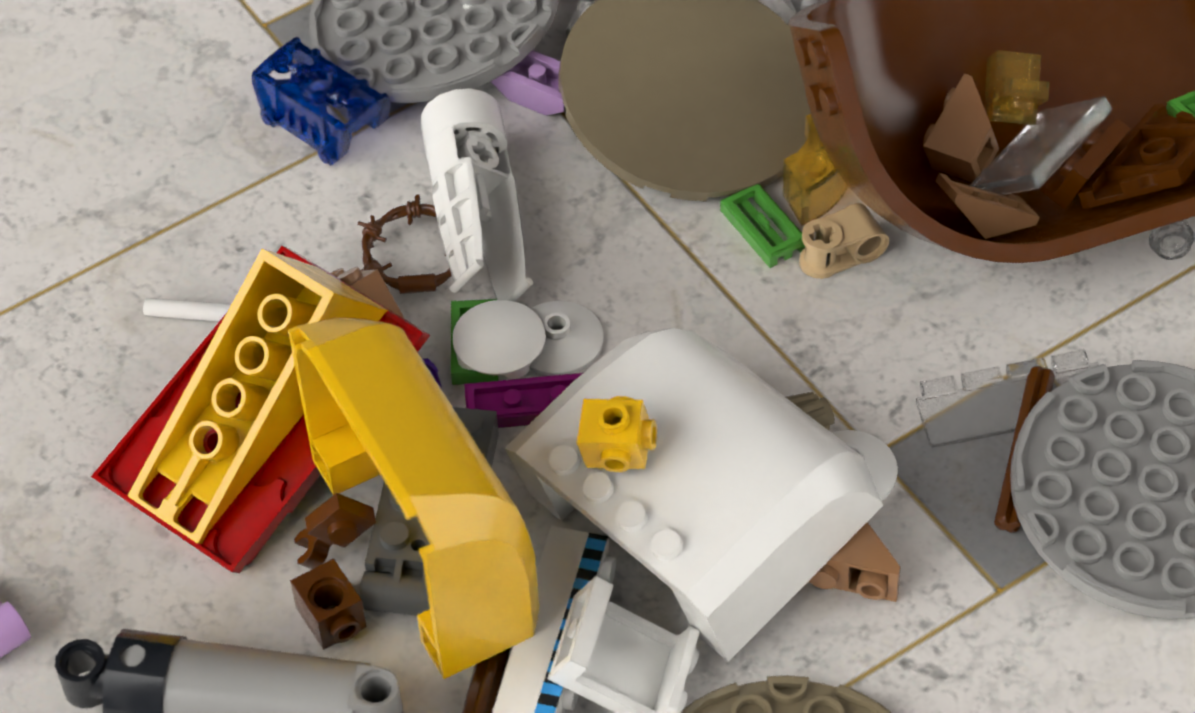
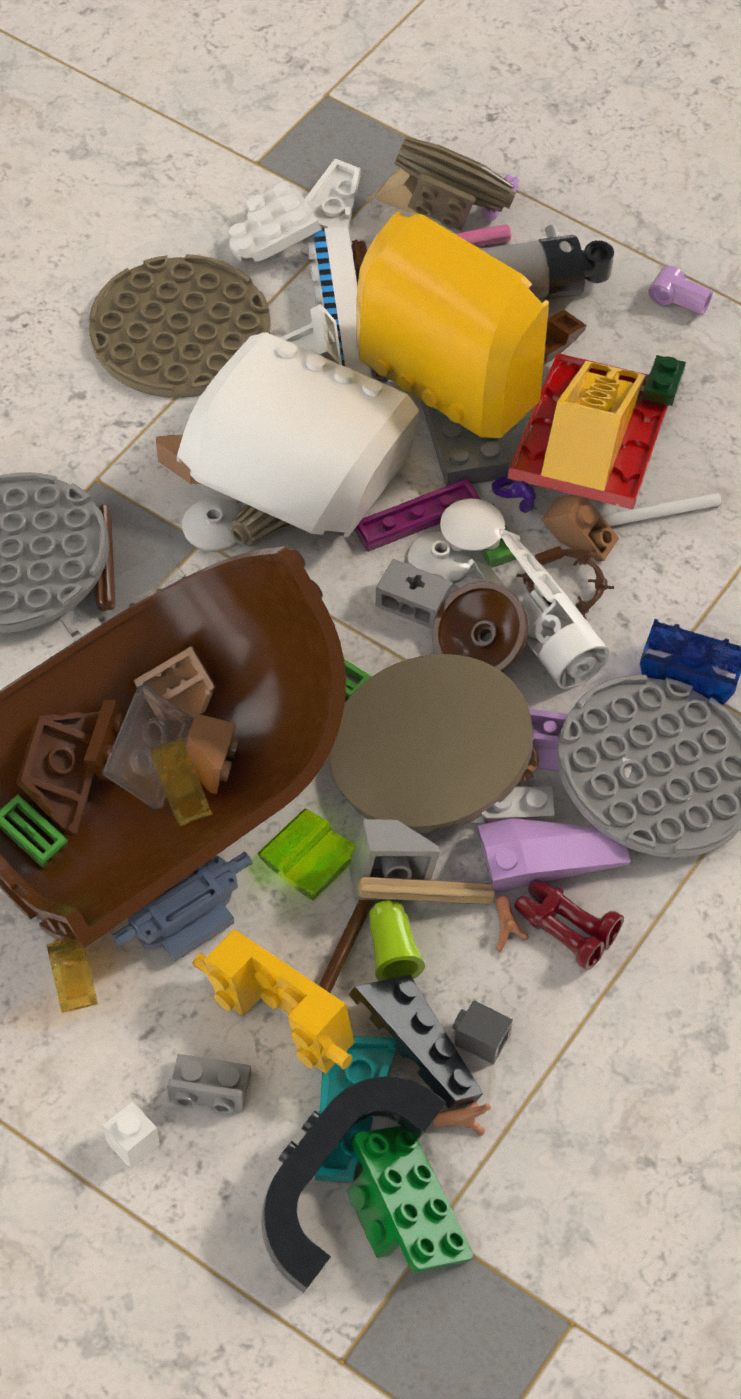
camera: 155 degrees right, 5 degrees up
(110, 466) = (664, 380): none -> dark green plate
(220, 611) = (561, 333): none -> reddish brown slope
(564, 191) = (475, 612): none -> reddish brown dish
(615, 433) = (340, 378): yellow brick -> none
(620, 278) = (412, 592): none -> light grey brick

